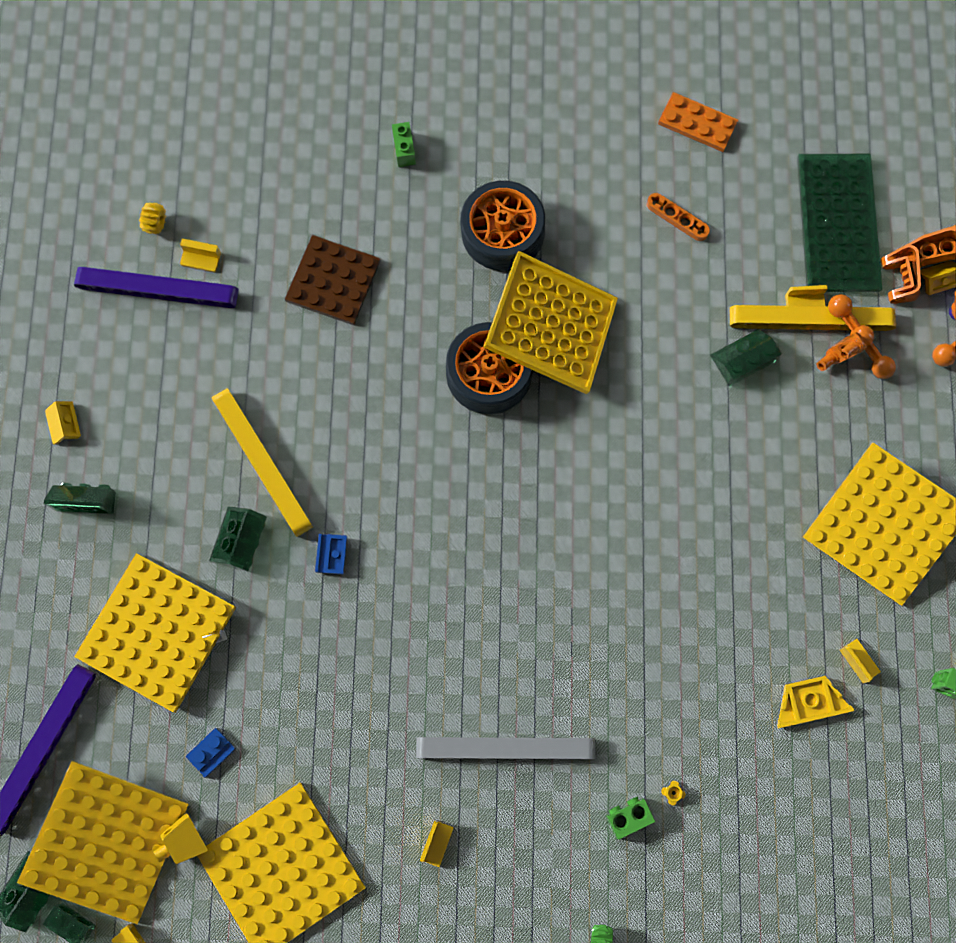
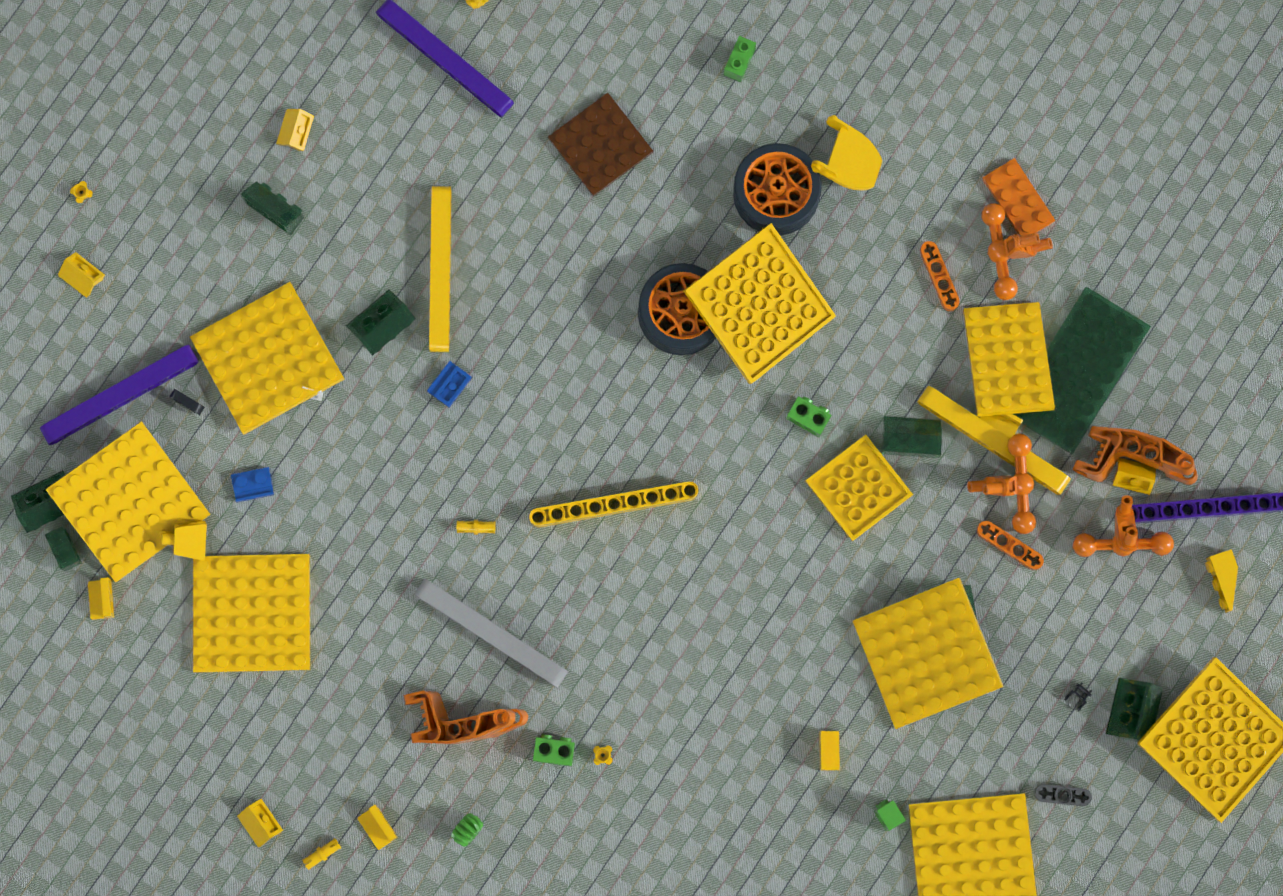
camera: 30 degrees right, 5 degrees up
(106, 716) = (186, 402): none -> black beam
(200, 255) = (499, 51): yellow panel -> none
(432, 663) = (476, 527): none -> yellow pin
(436, 843) = (387, 671): yellow panel -> none
(516, 863) = (440, 729): none -> orange piece
(543, 558) = (605, 510): none -> yellow beam
(546, 166) = (853, 159): none -> yellow piece
(652, 396) = (806, 421): none -> bright green brick
(725, 154) = (1013, 247): none -> orange connector
(732, 424) = (859, 488): none -> yellow plate
(780, 246) = (1008, 359): none -> yellow plate
(810, 701) = (765, 756): yellow wing -> none
(884, 394) = (1011, 543): none -> orange beam

